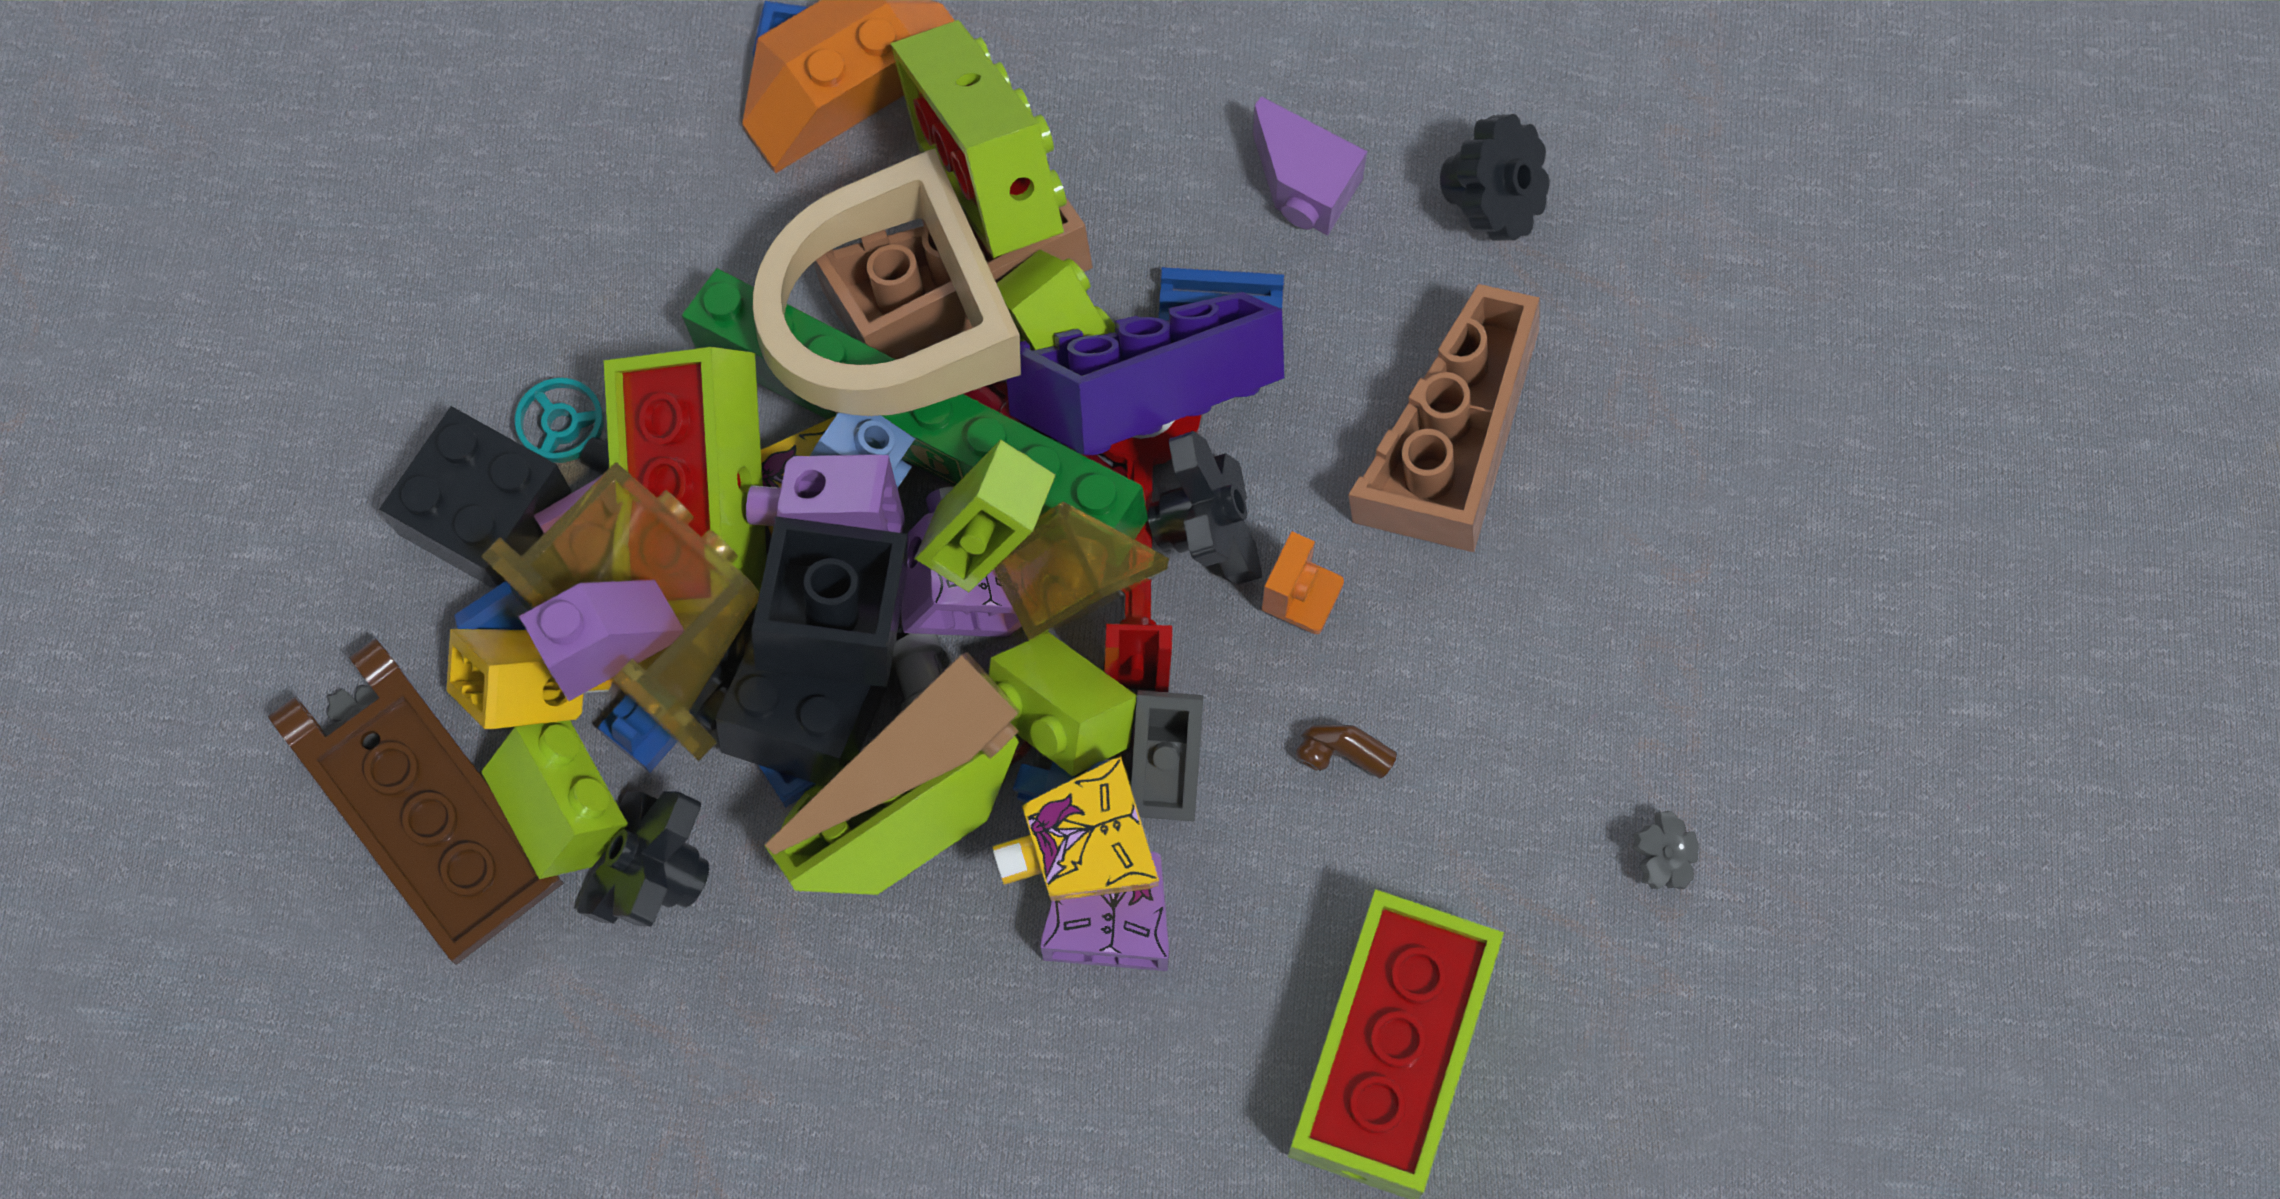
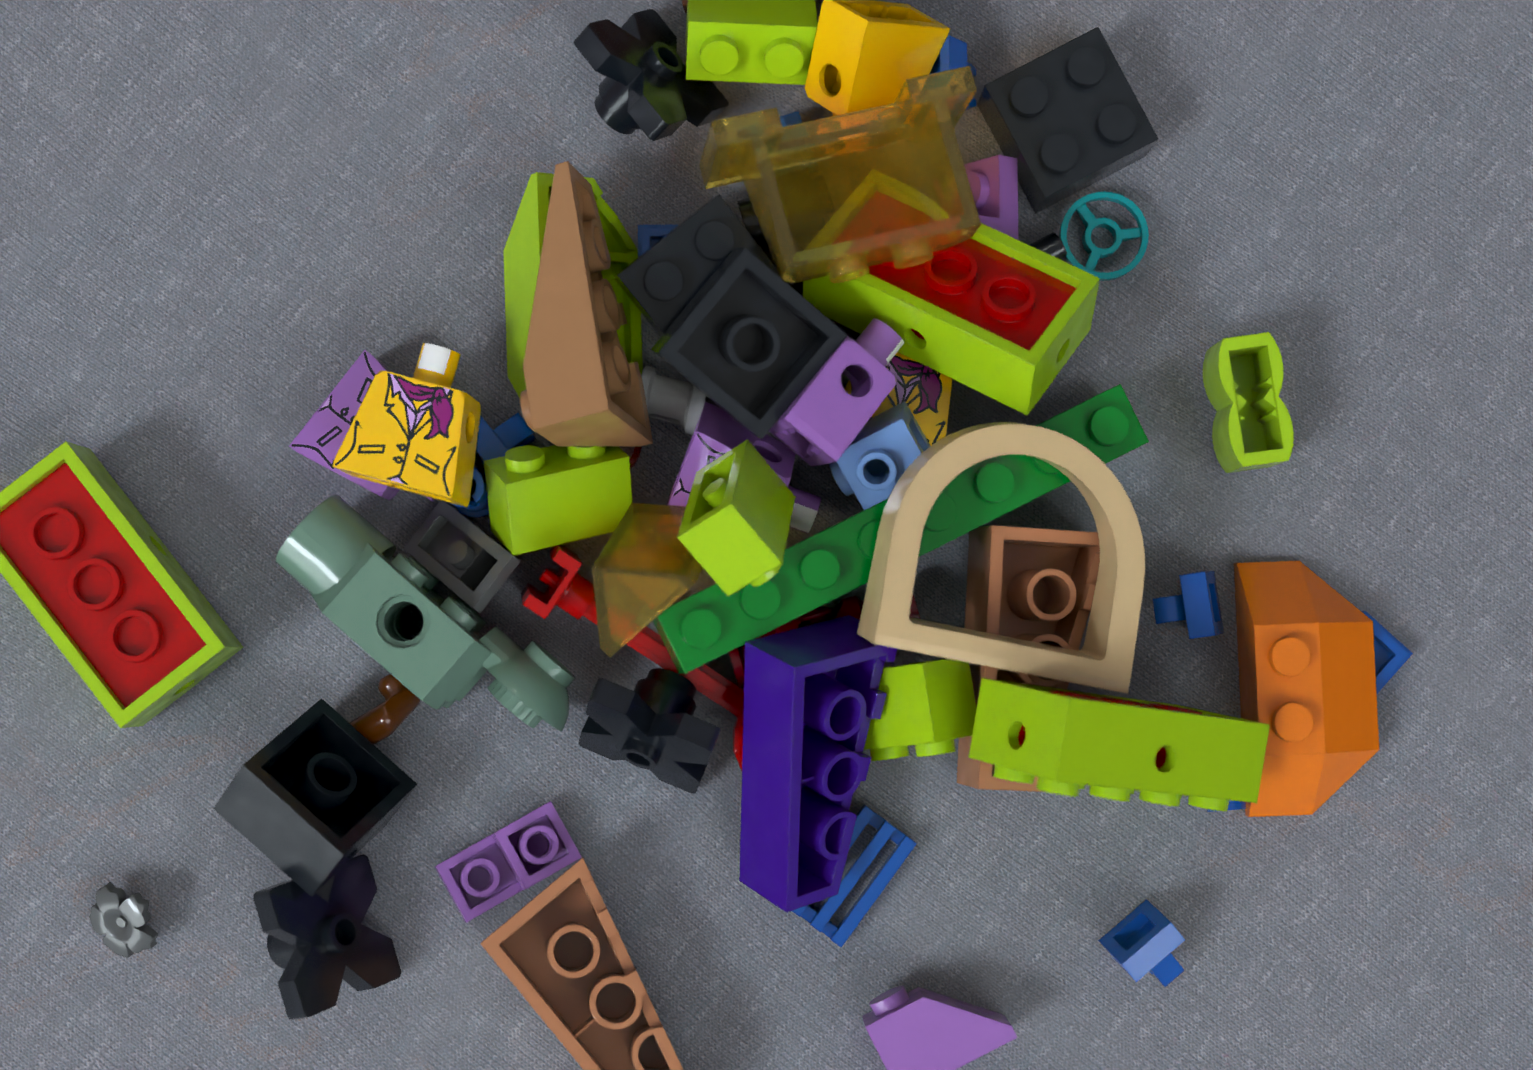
camera: 120 degrees right, 15 degrees up
(598, 629) = (839, 131): medium lavender slope -> none
(627, 226) = (1244, 387): none -> lime brick
(827, 169) = (1196, 605): none -> blue tile
(1124, 57) = (1145, 944): none -> blue tile
(1242, 800) = (369, 593): none -> sand green brick
(1300, 589) = (539, 769): orange bracket -> none
(1397, 575) = (507, 861): none -> medium lavender slope
(1448, 737) = (314, 796): none -> black brick
(1560, 665) = (323, 939): none -> black plant

